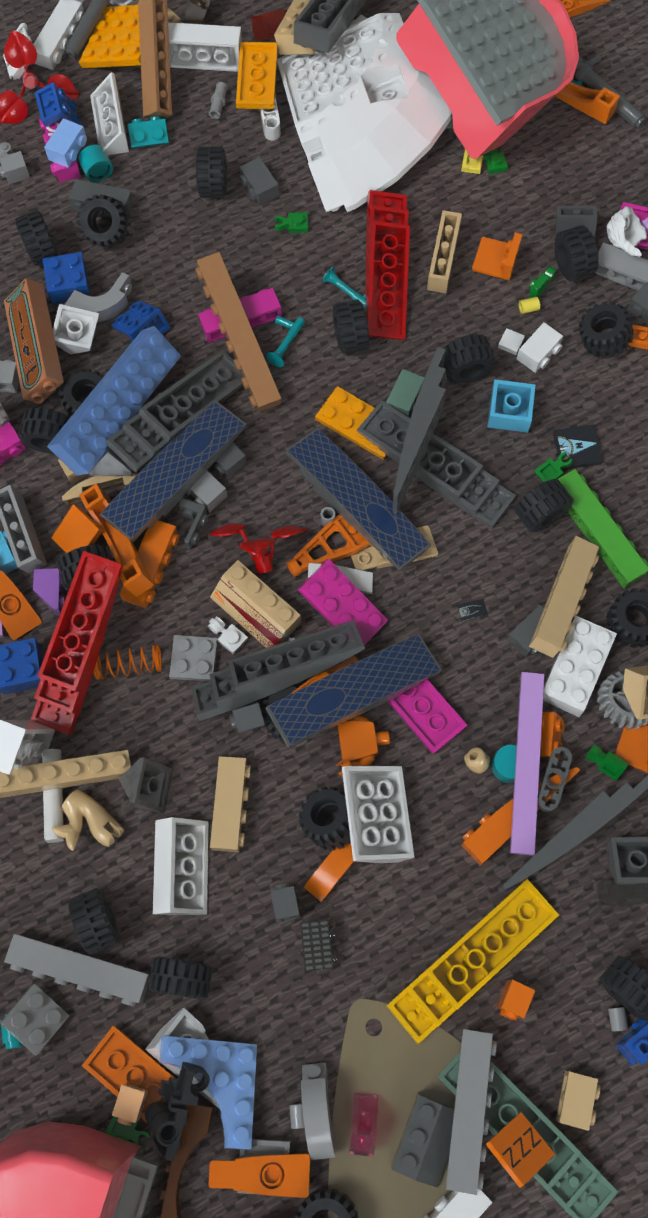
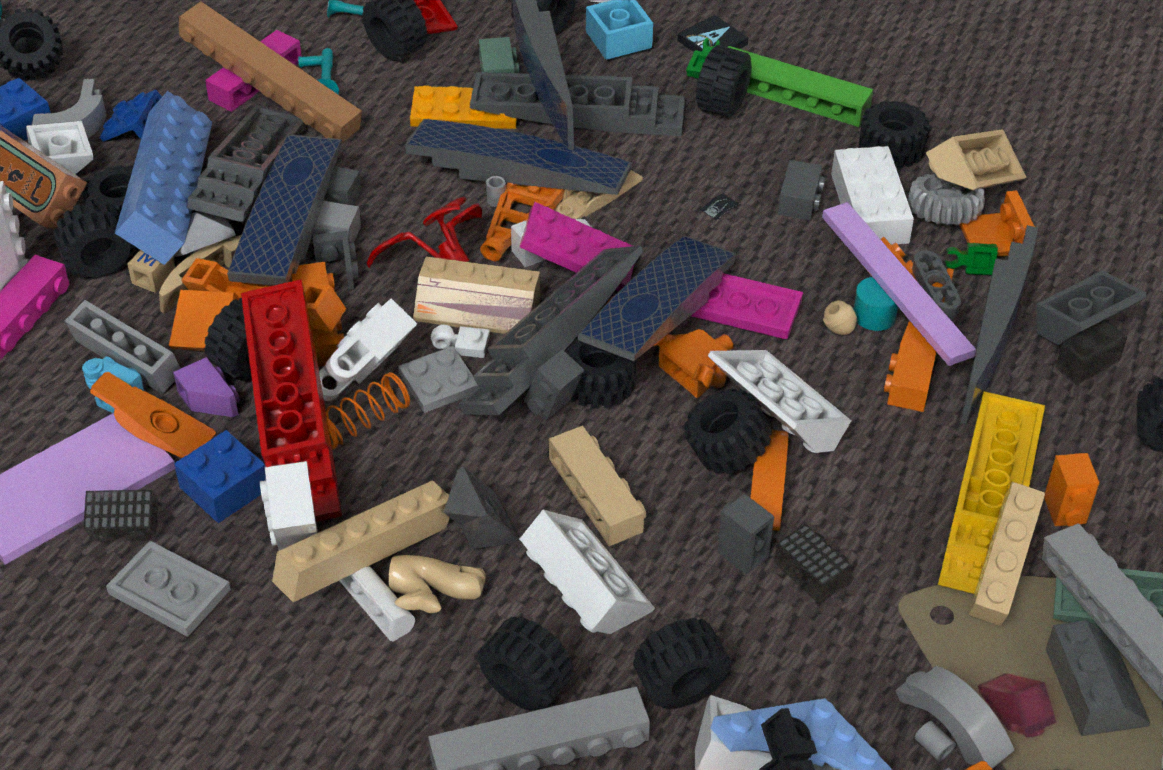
camera: 35 degrees left, 25 degrees down
(150, 619) = (366, 346): none -> white brick
(430, 1025) = (1006, 554): none -> tan brick
(564, 597) = (811, 141): tan brick -> none

